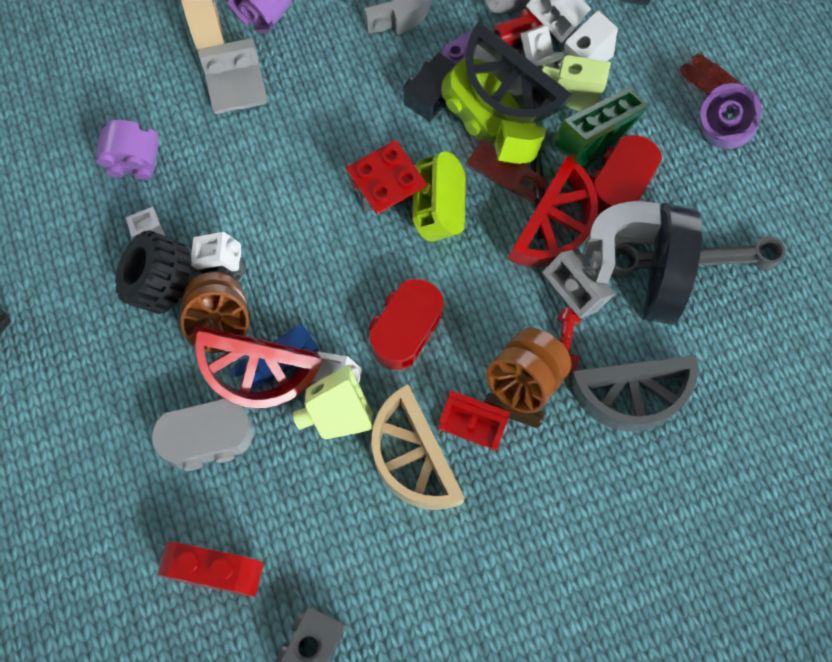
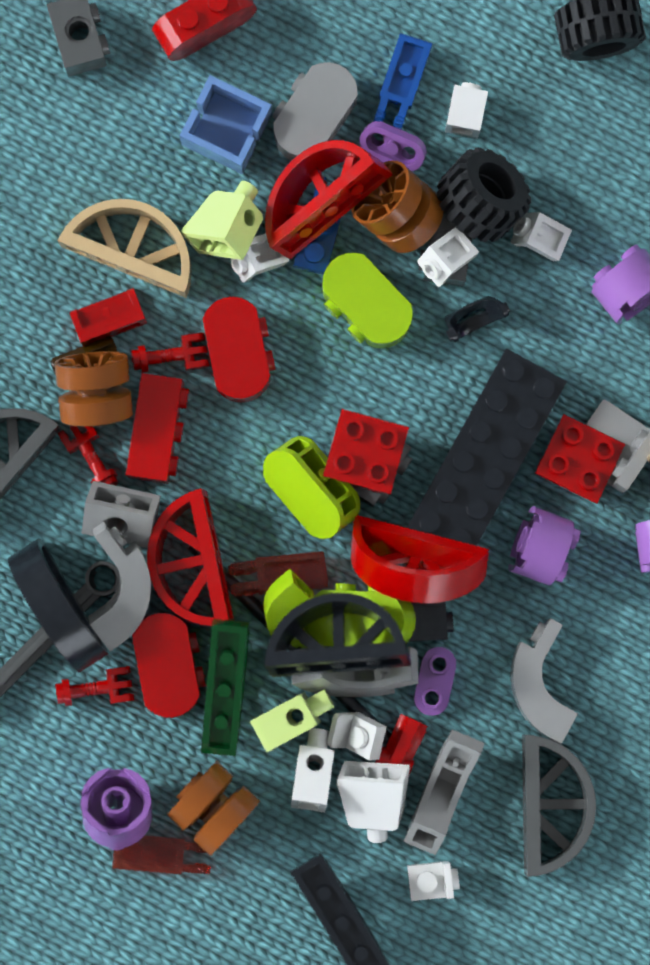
camera: 135 degrees right, 15 degrees up
(106, 346) = (466, 110): none -> white brick
(125, 405) = (403, 77): none -> blue hinge
(178, 366) = (393, 145): none -> medium lavender plate
(235, 222) = (493, 311): none -> black helmet
(262, 88) = (580, 459): none -> red hinge
(271, 478) = (228, 124): none -> medium blue piece
(294, 282) = (366, 301): none -> lime brick
(315, 133) = (488, 450): none -> black brick
(332, 56) = (543, 546): none -> medium lavender brick
(408, 107) = (449, 565): none -> red window
(475, 372) = (142, 359): none -> red hinge
(504, 318) = (156, 428): none -> red brick
(667, 72) = (205, 801): none -> dark orange wheel
(668, 194) = (111, 686): none -> red hinge

